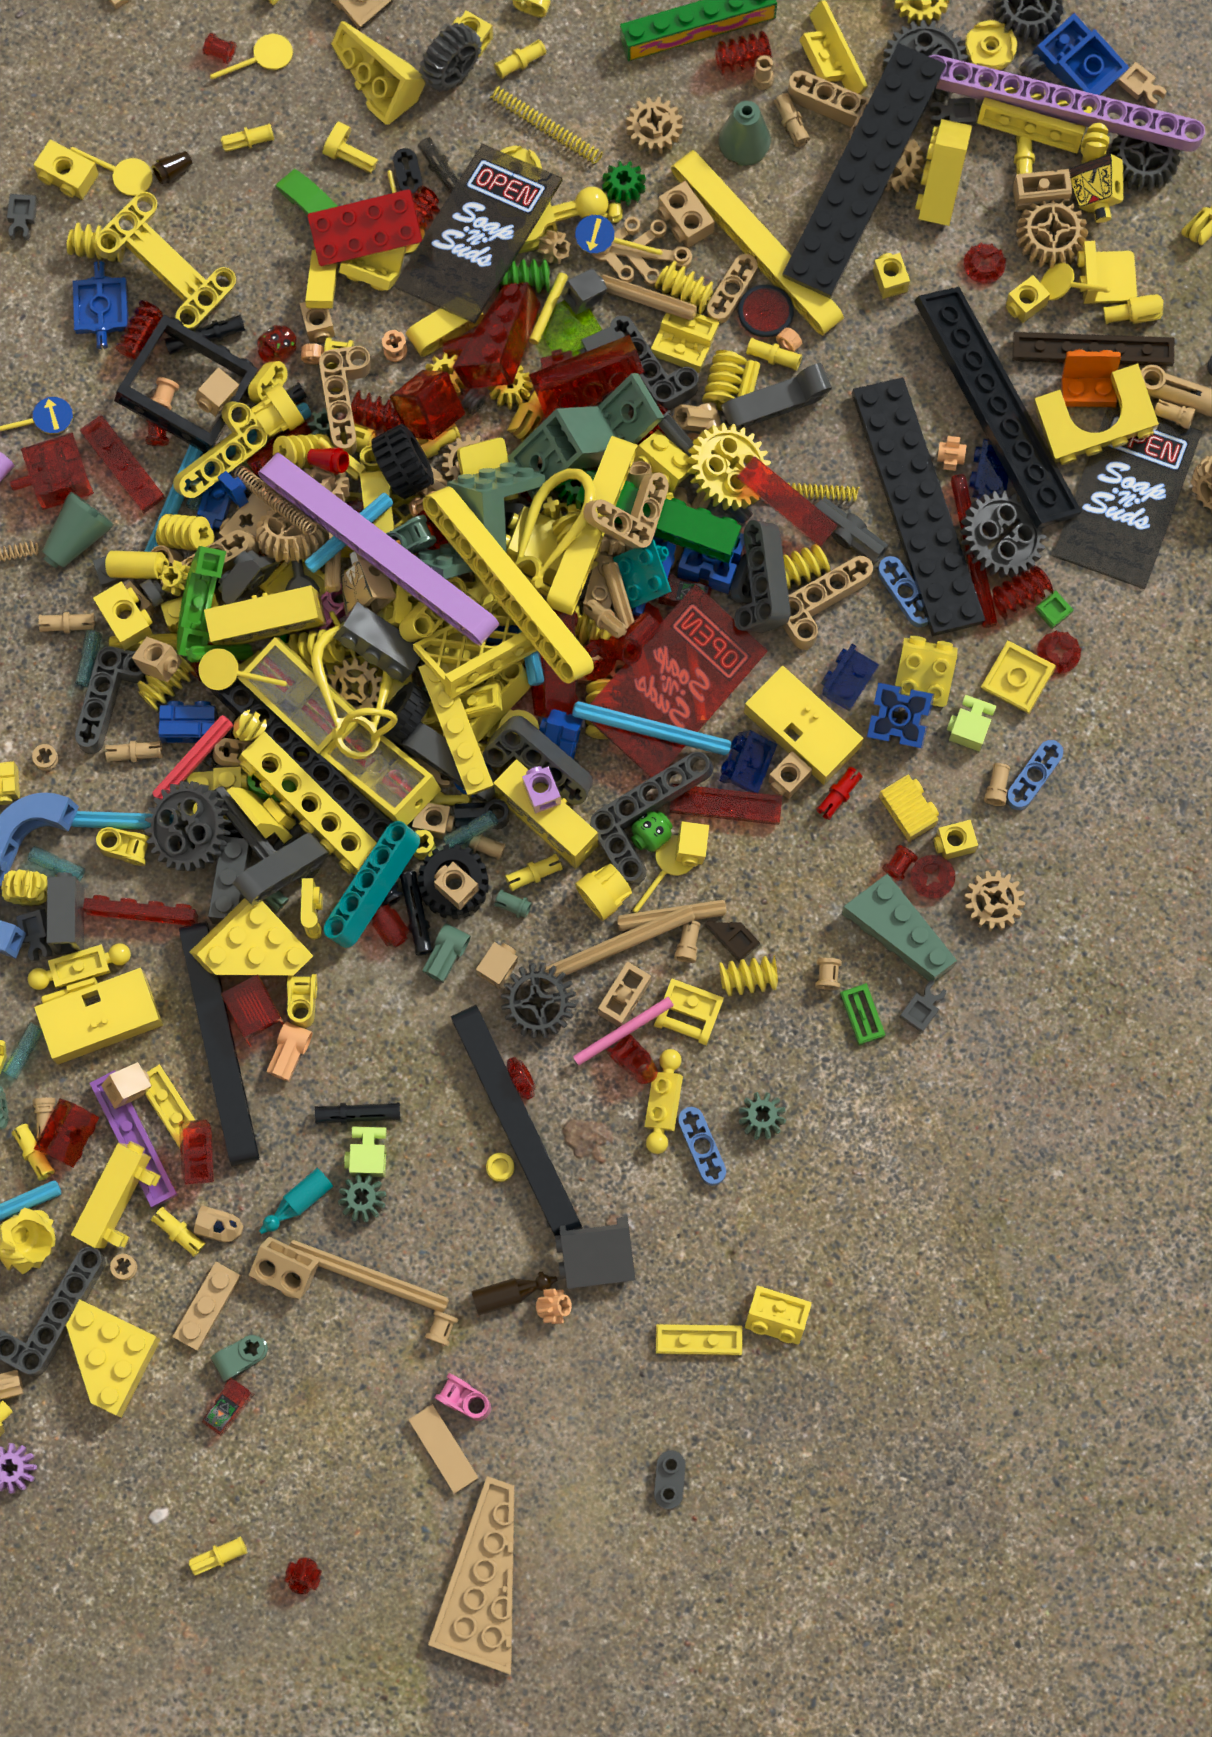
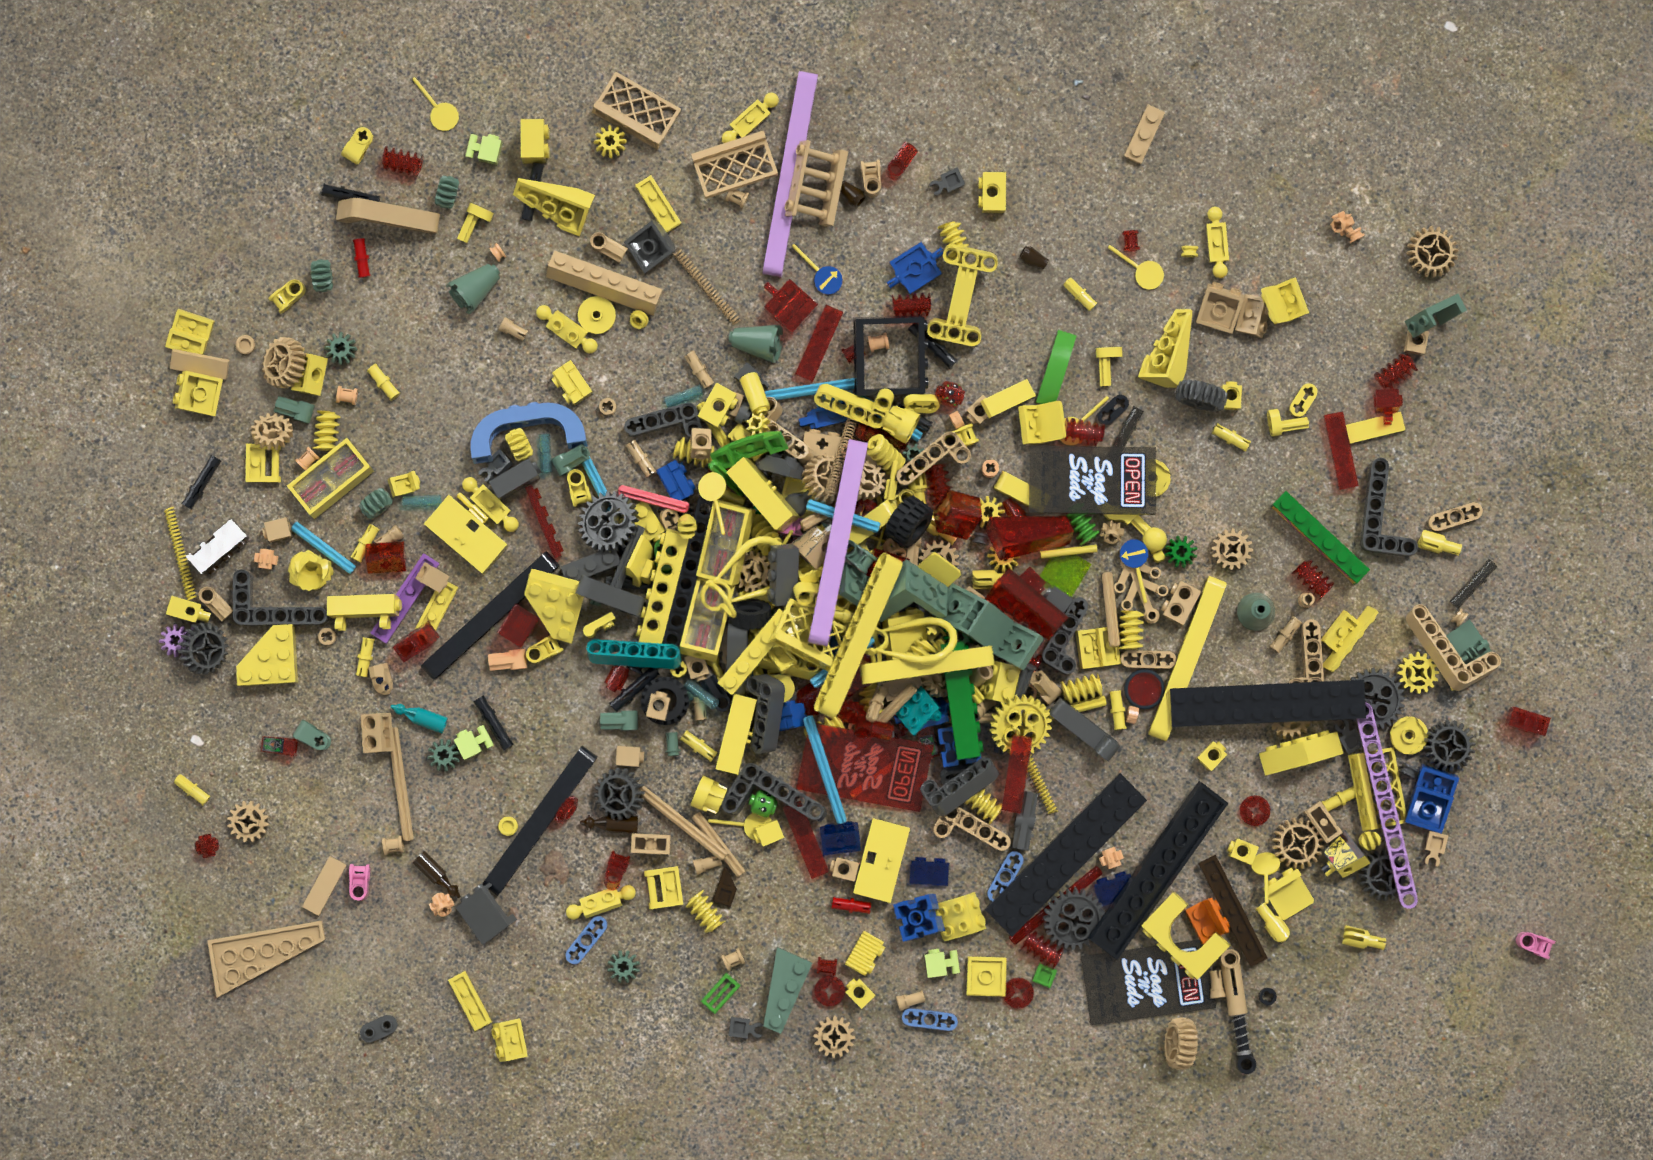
camera: 55 degrees right, 10 degrees up
(56, 1446) = (200, 634): none -> dark grey gear
(82, 843) = (569, 460): none -> sand green piece
(129, 176) = (1013, 234): light yellow piece -> none
(184, 532) = (793, 411): light yellow piece -> none
(207, 1306) = (331, 699): tan plate -> none
(216, 392) = (890, 379): tan brick -> none
(233, 488) = (837, 425): blue plate -> none
(293, 1514) = (249, 812): none -> tan gear
(329, 459) = (884, 477): red cone -> none
(365, 227) = (1053, 408): red bracket -> none
(543, 800) = (743, 735): lavender brick -> none
(546, 125) = (1191, 492): light yellow piece -> none
(572, 1032) = (612, 825): none -> dark brown wheel
(584, 291) = (1091, 569): dark grey brick -> none
(623, 1031) = (628, 855): bright pink piece -> none
(637, 520) = (944, 692): tan beam -> none

